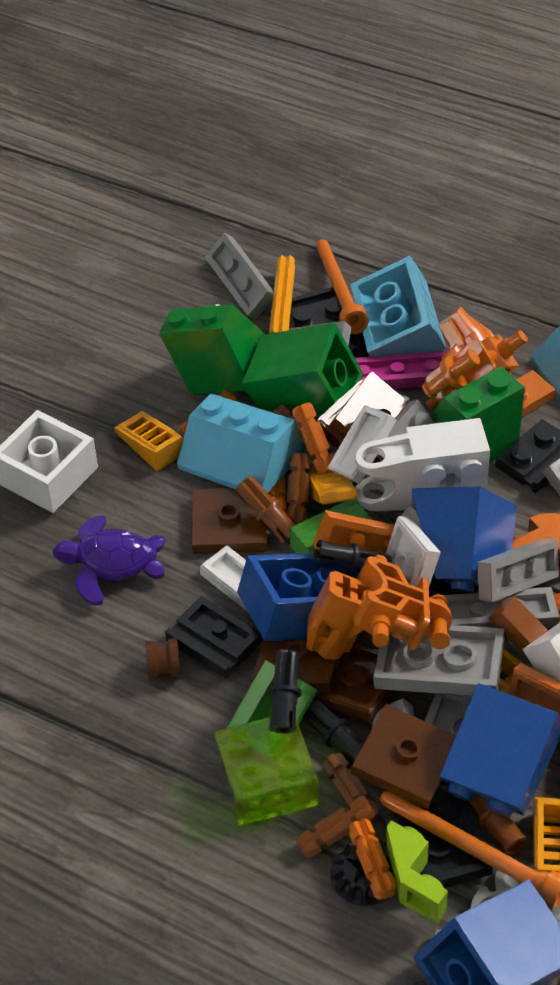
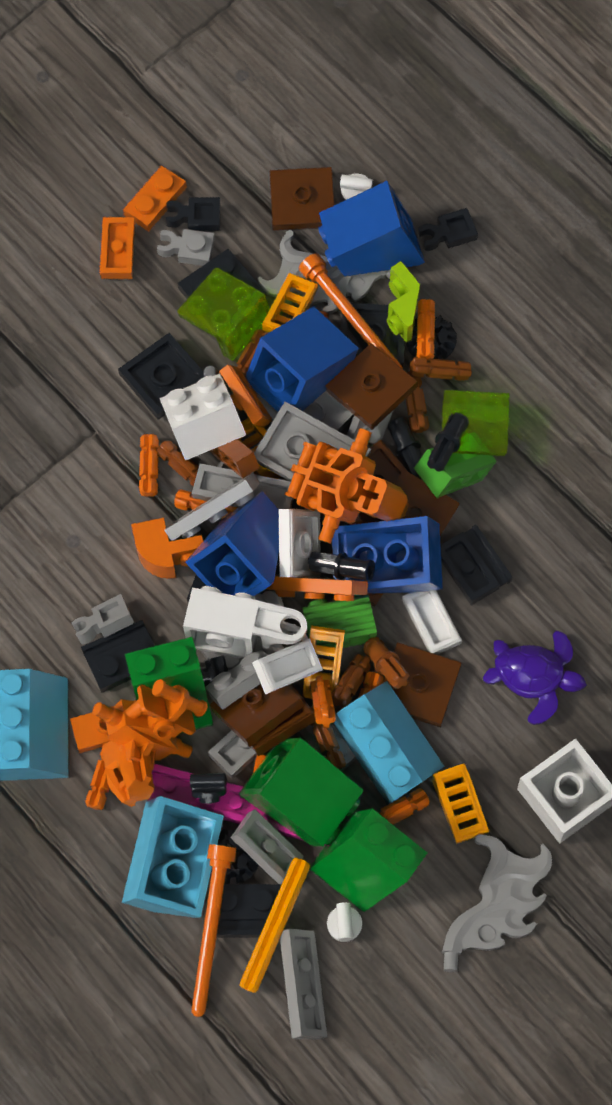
camera: 160 degrees left, 20 degrees up
(82, 384) = (504, 902): none -> light grey piece
(163, 659) = (521, 554): reddish brown wheel -> none
(391, 358) = (208, 786): none -> black plate

